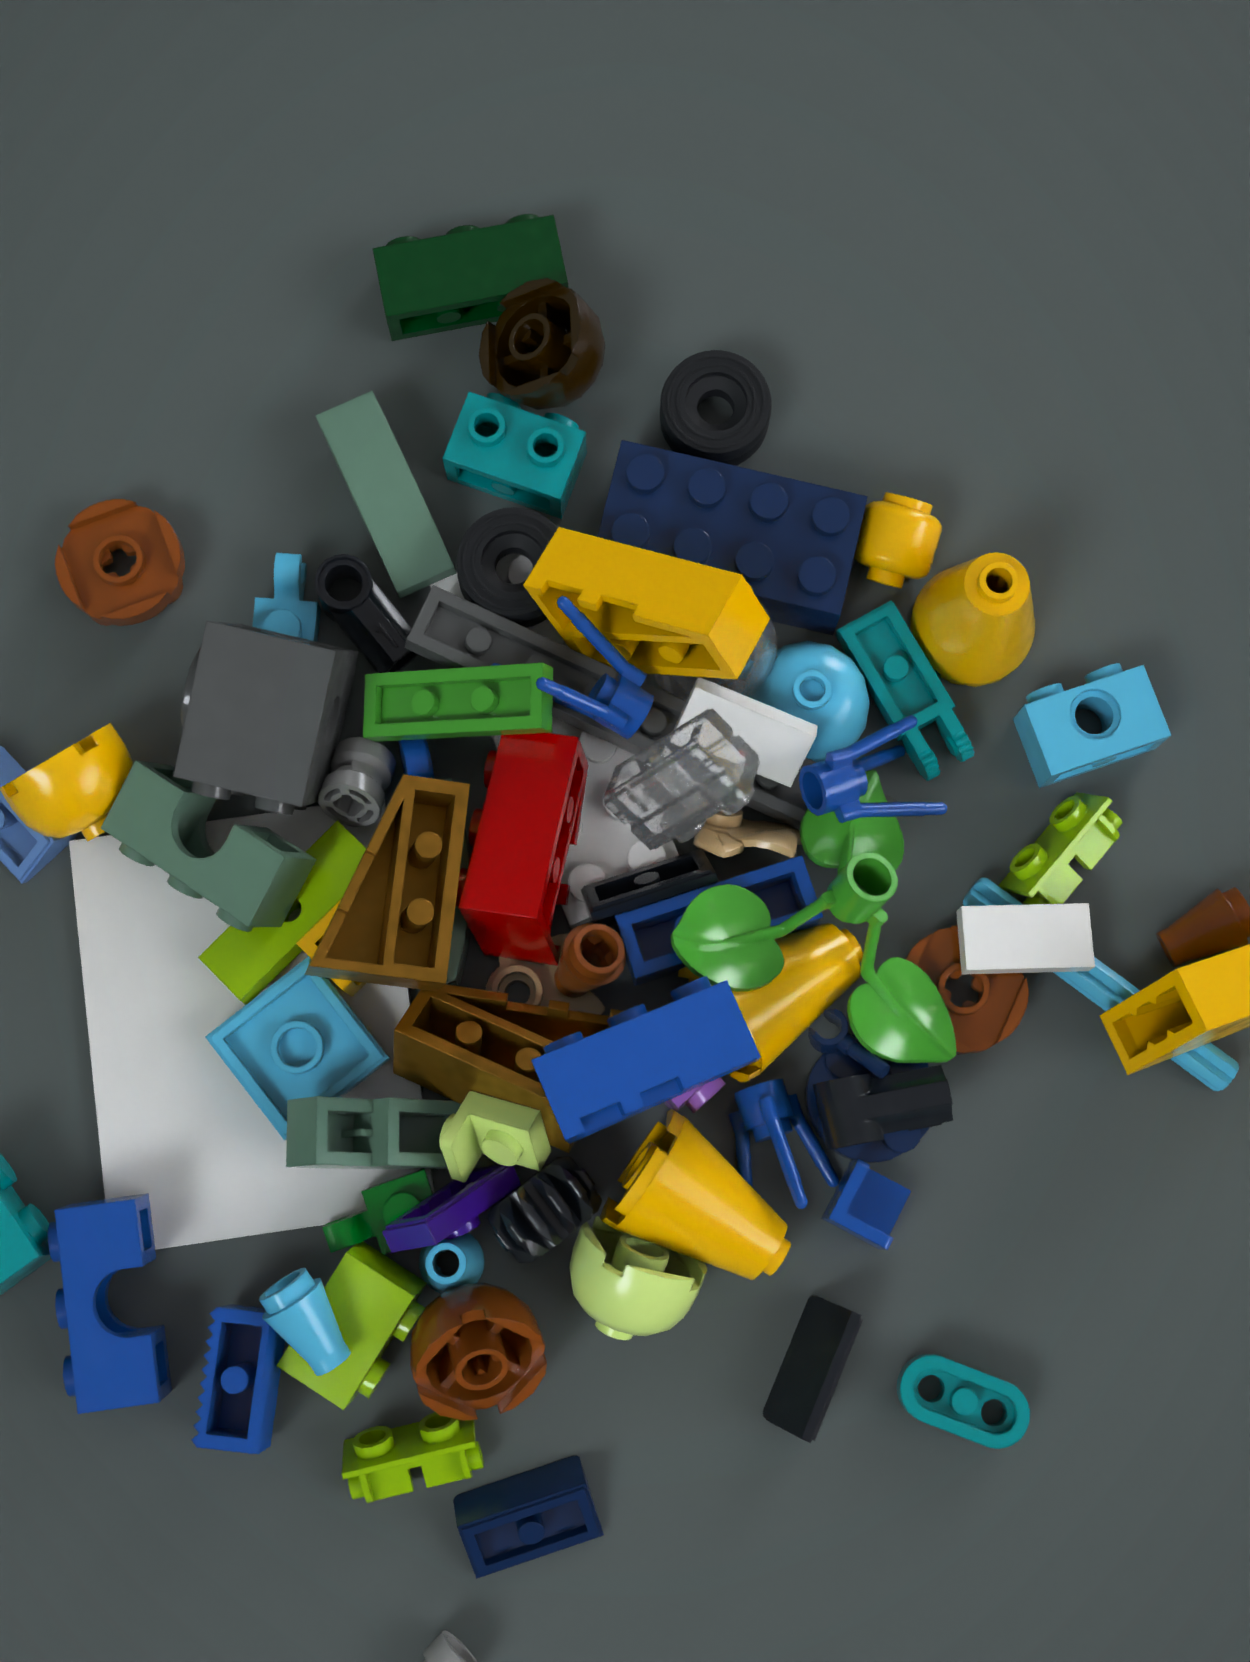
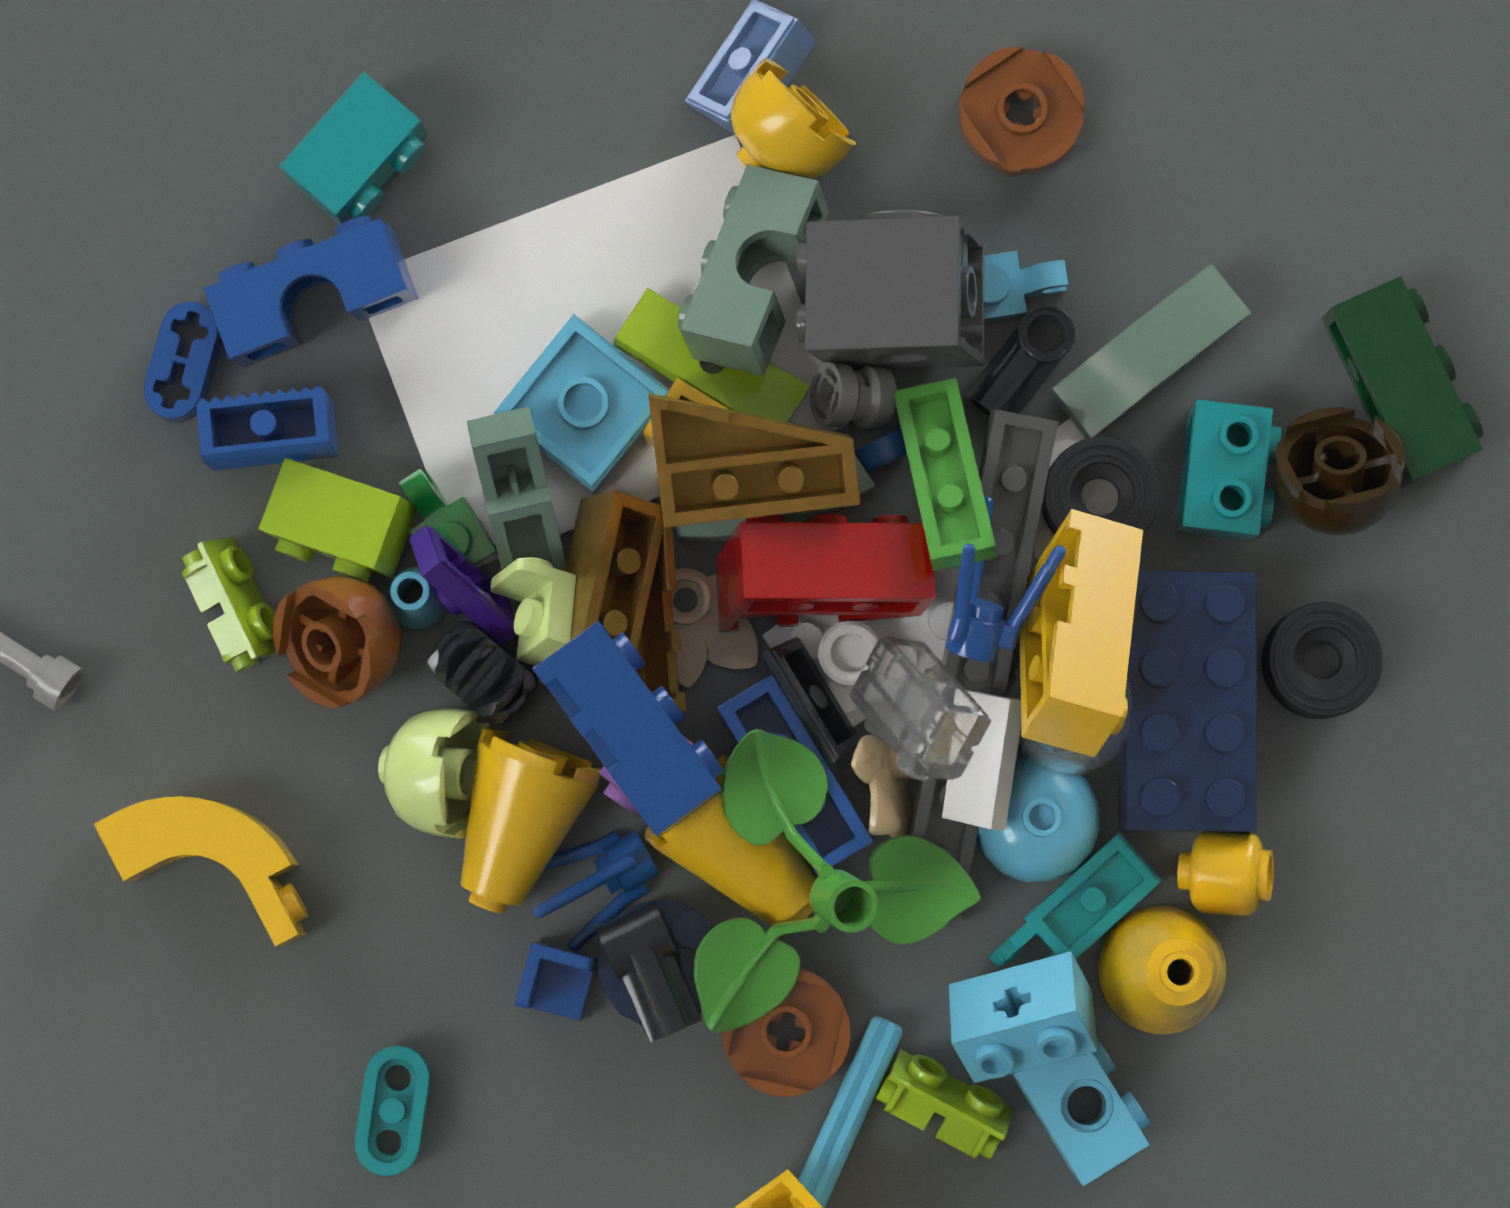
camera: 80 degrees right, 5 degrees up
(141, 1468) = (168, 357): none -> blue beam
(305, 1320) = (330, 473): medium azure cone -> none
(526, 1516) = (201, 723): dark blue slope -> none
(589, 959) = (737, 665): dark orange cone -> none
(607, 843) = (845, 651): none -> white tile
(633, 1547) = (182, 827): none -> yellow arch
(812, 1368) = (393, 959): black slope -> none
(842, 779) = (957, 862): blue plant -> none
(847, 1044) = (701, 926): dark blue hand -> none
(999, 755) = (1022, 1017): none -> medium azure brick
(1025, 938) = (846, 1081): white tile -> none

